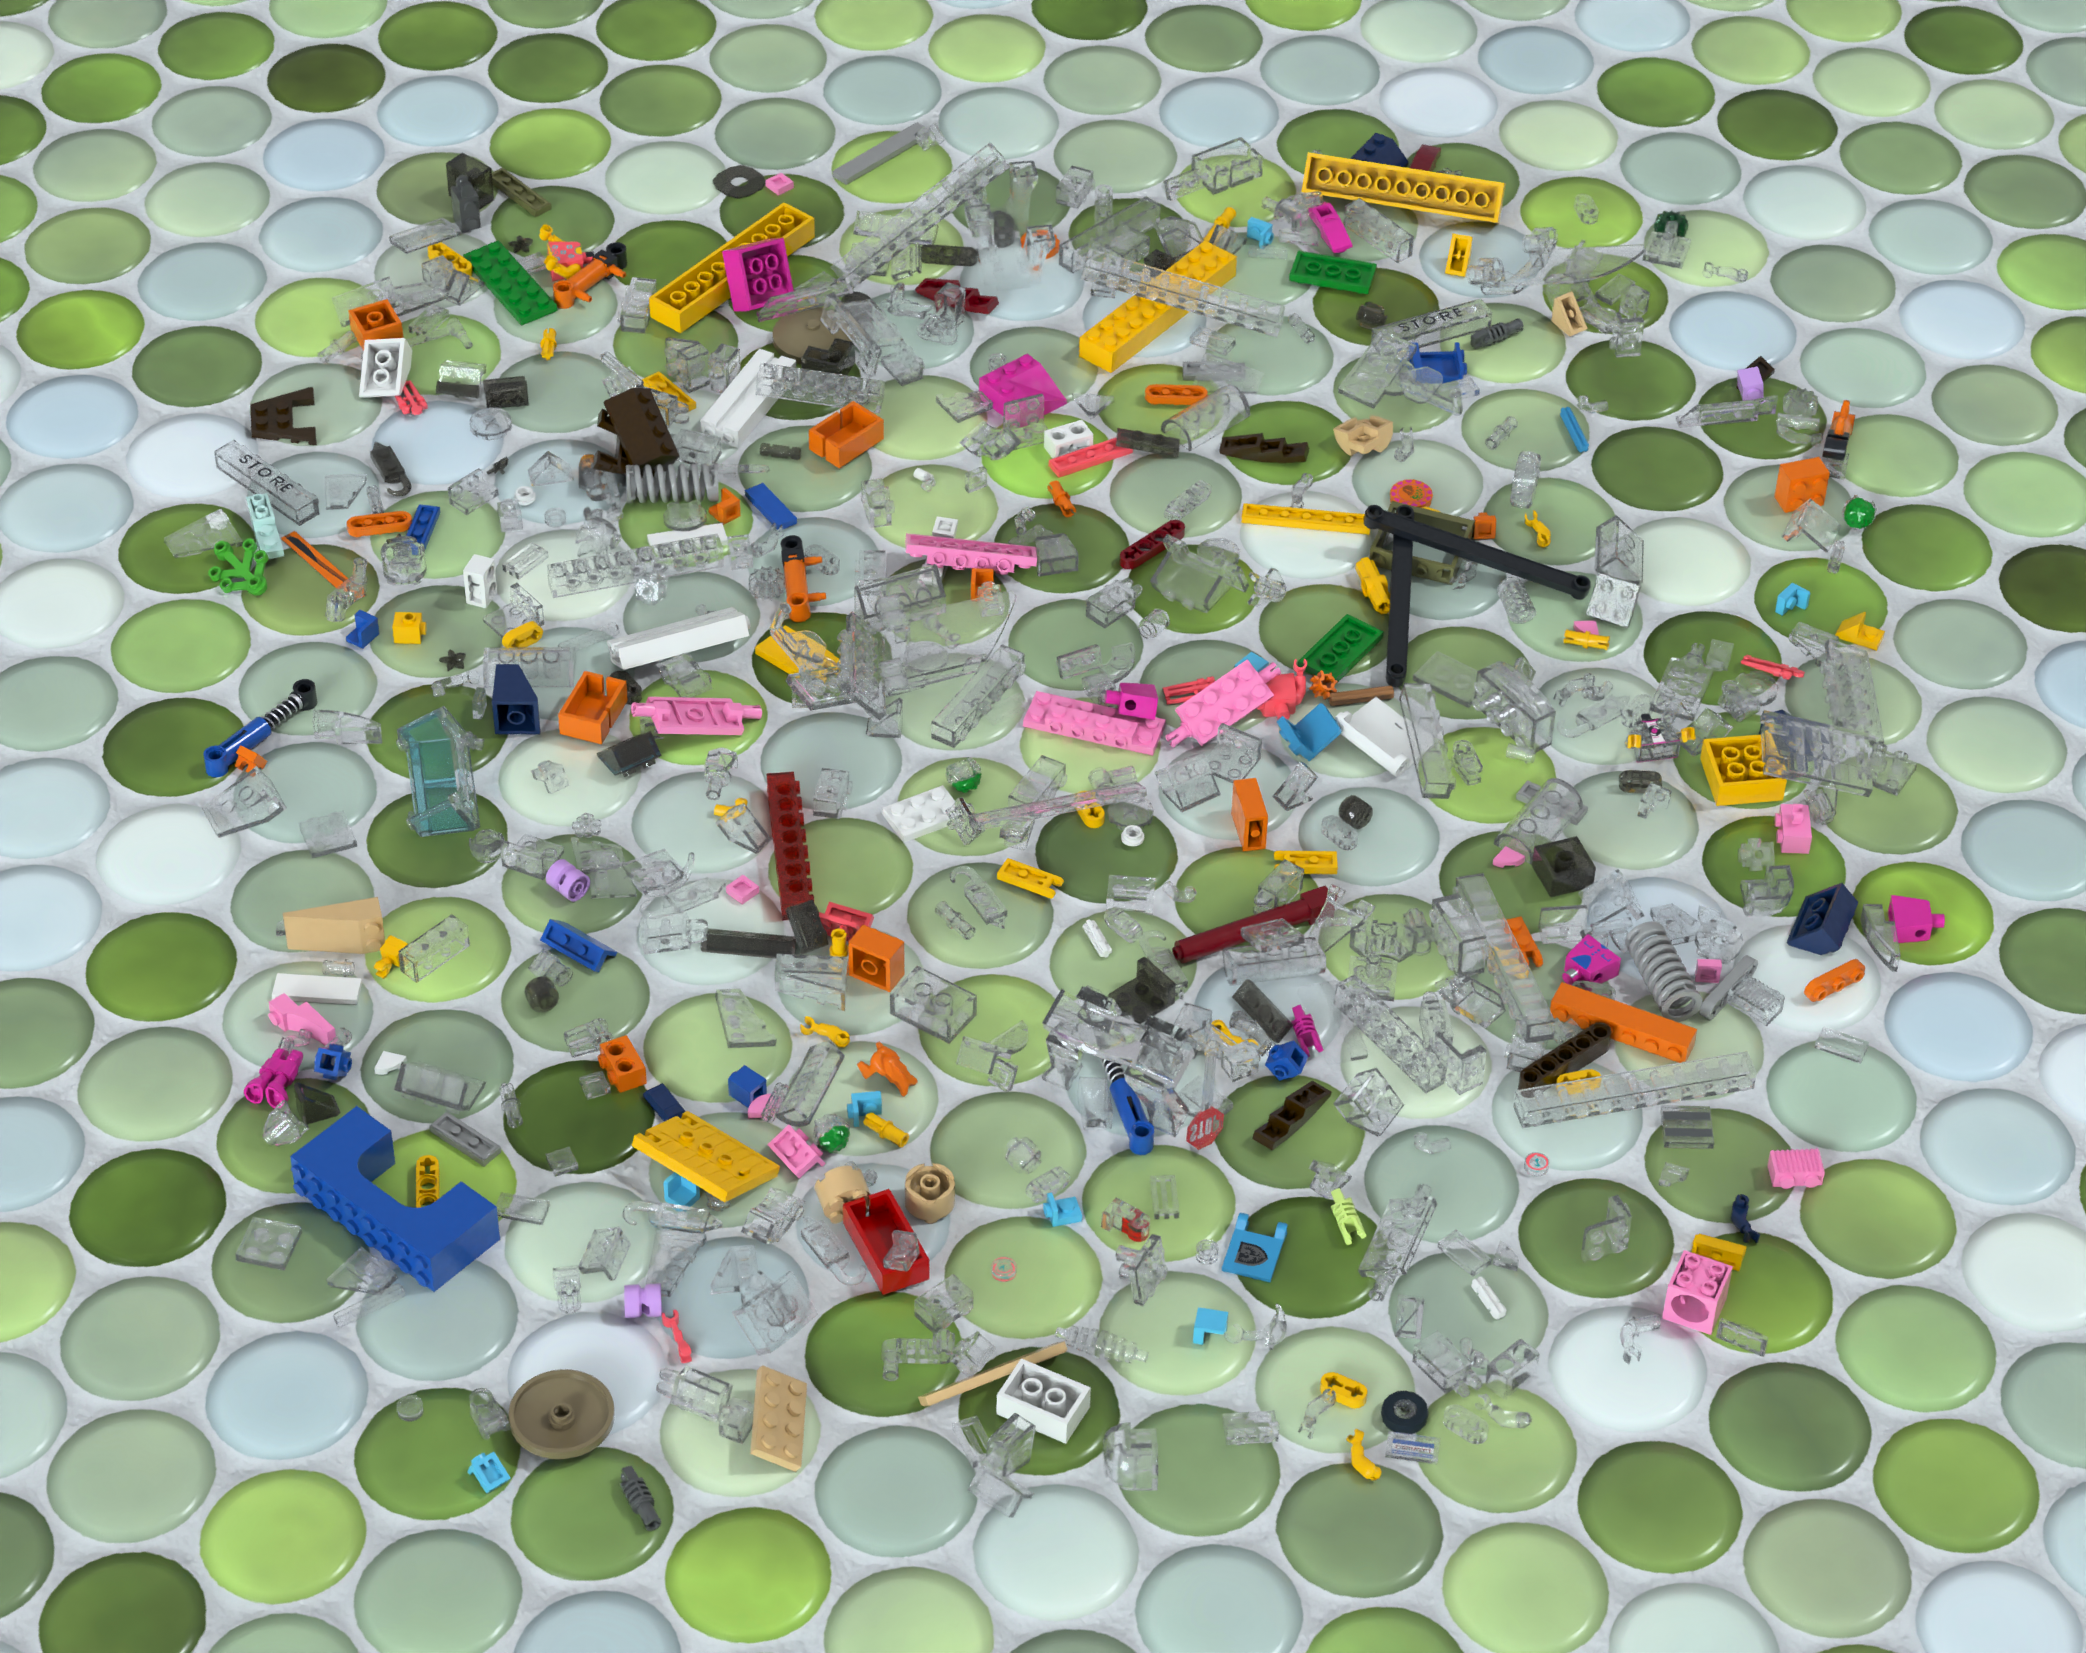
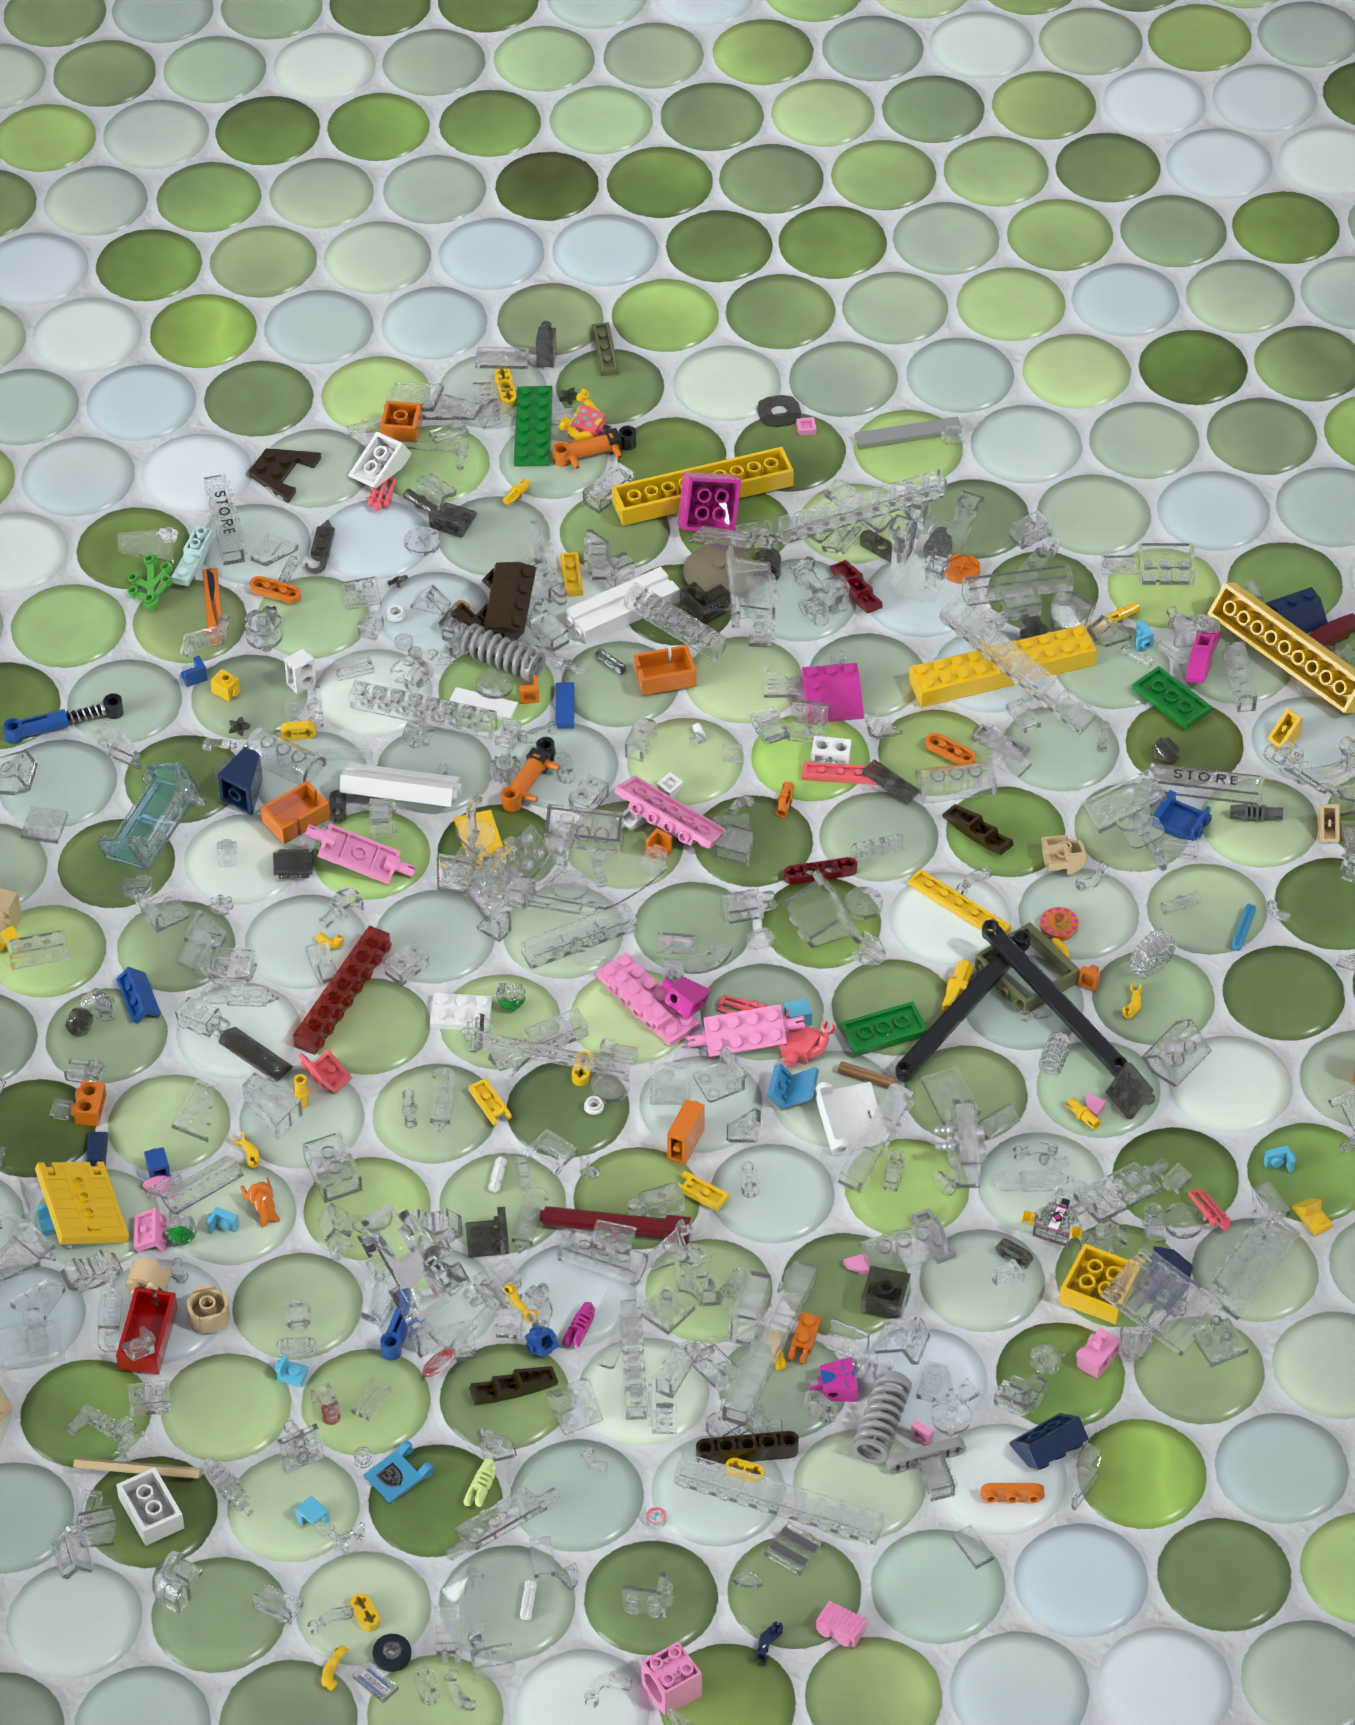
camera: 35 degrees right, 5 degrees up
(249, 757) = (36, 741): orange tile -> none
(424, 523) = (303, 607): blue tile -> none
(477, 173) = (567, 325): clear smoke brick -> none
(567, 880) = (168, 941): lavender wheel -> none
(742, 889) = (285, 1008): bright pink tile -> none
(807, 926) = (283, 1062): clear smoke bracket -> none
(876, 958) = (322, 1109): orange brick -> none
(886, 1129) = (224, 1246): yellow axle -> none
(1003, 1269) = (215, 1394): clear tile -> none
(1263, 1010) = (562, 1293): clear smoke plate -> none
(1323, 685) = (837, 1047): orange gear -> none
(1355, 812) = (770, 1169): clear smoke piece -> none
(1626, 1022) = (818, 1442): orange brick -> none
(1719, 1250) = (726, 1656): yellow panel -> none
(1913, 918) = (1120, 1475): dark pink torso -> none

